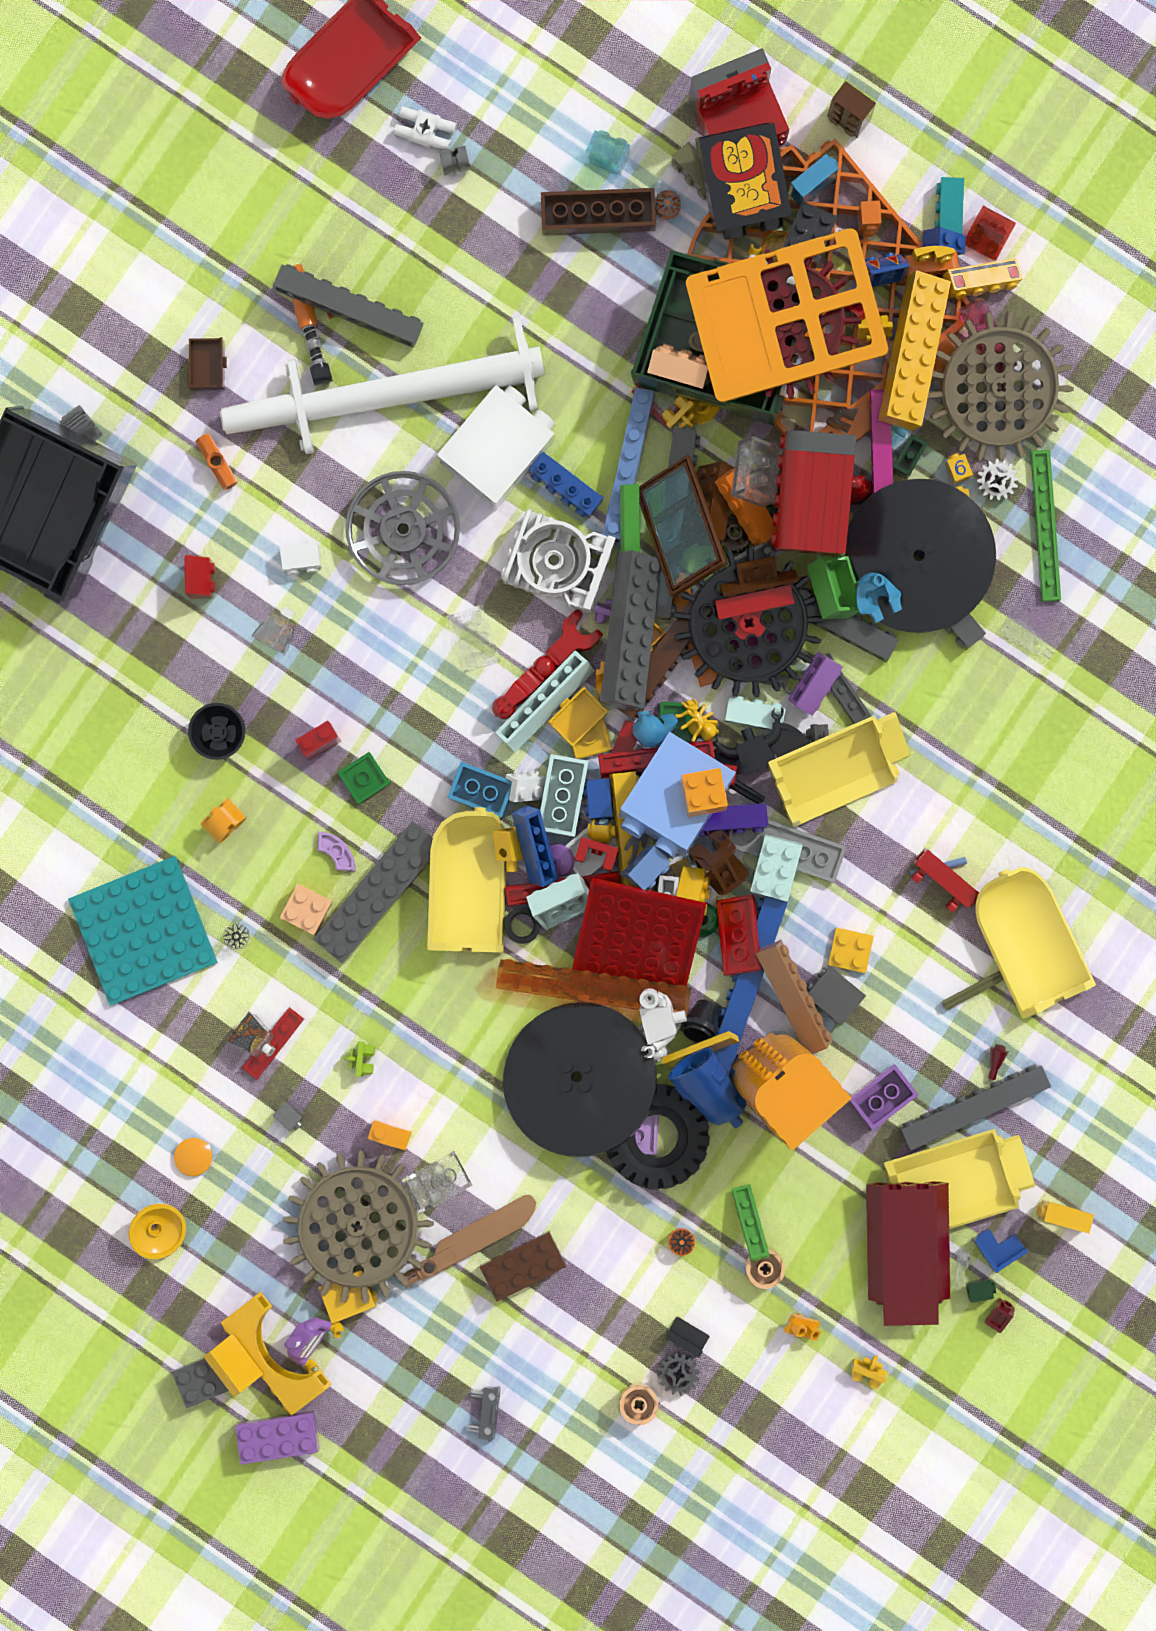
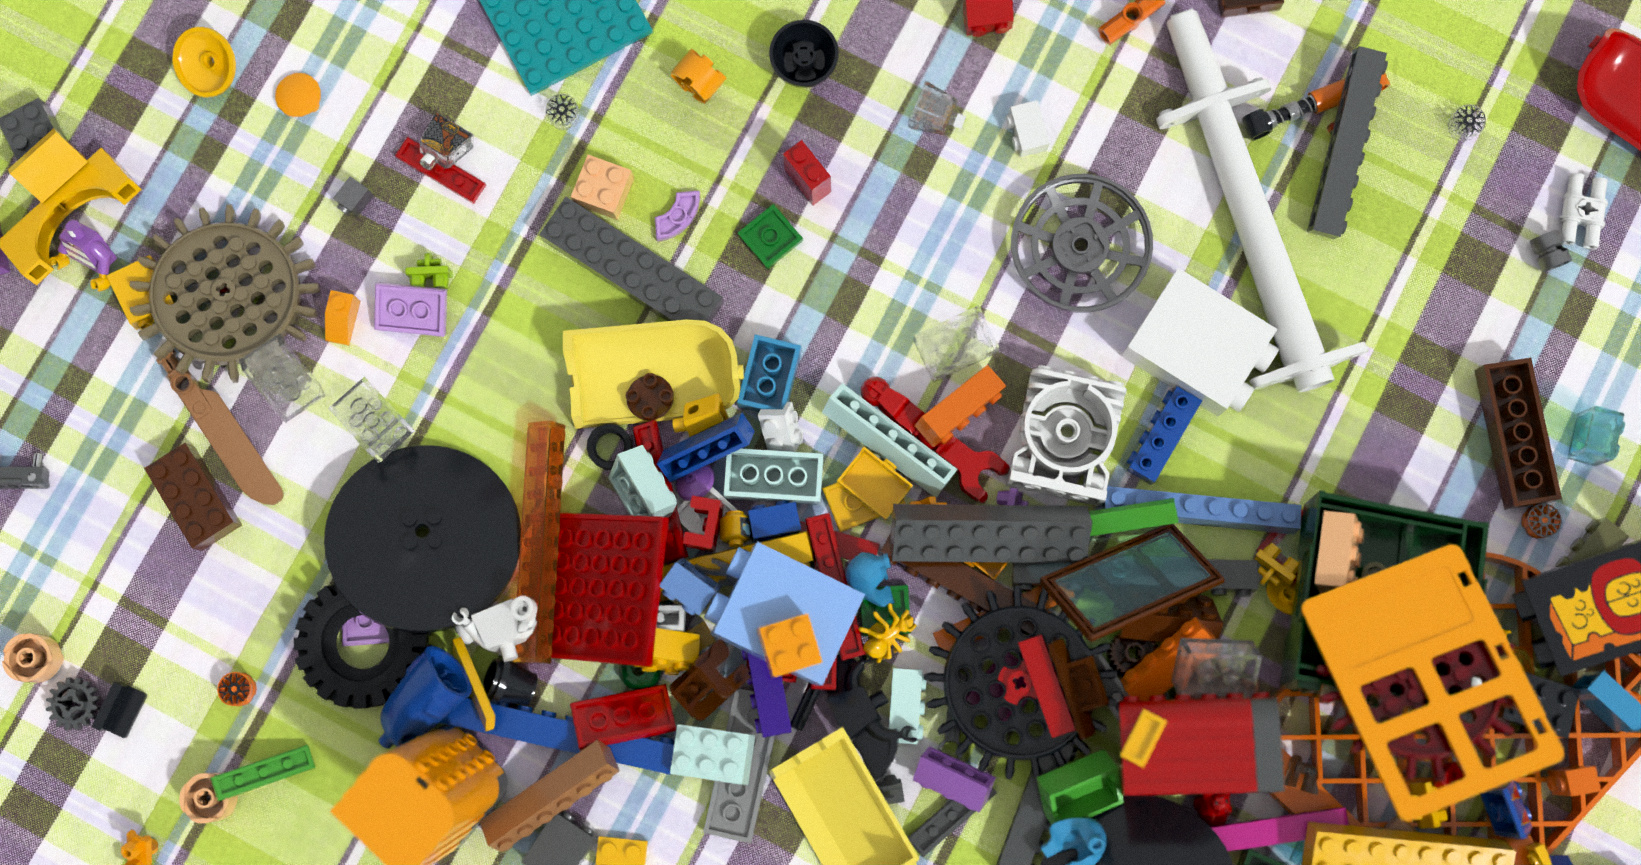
camera: 90 degrees right, 5 degrees down
(340, 208) = (1466, 123): none -> clear wheel
(389, 1076) = (410, 309): none -> lavender tile
(479, 1113) = (371, 419): none -> clear brick
(486, 888) = (649, 397): none -> reddish brown dish
(525, 641) = (960, 406): none -> orange brick
(805, 533) = (1143, 738): none -> yellow tile

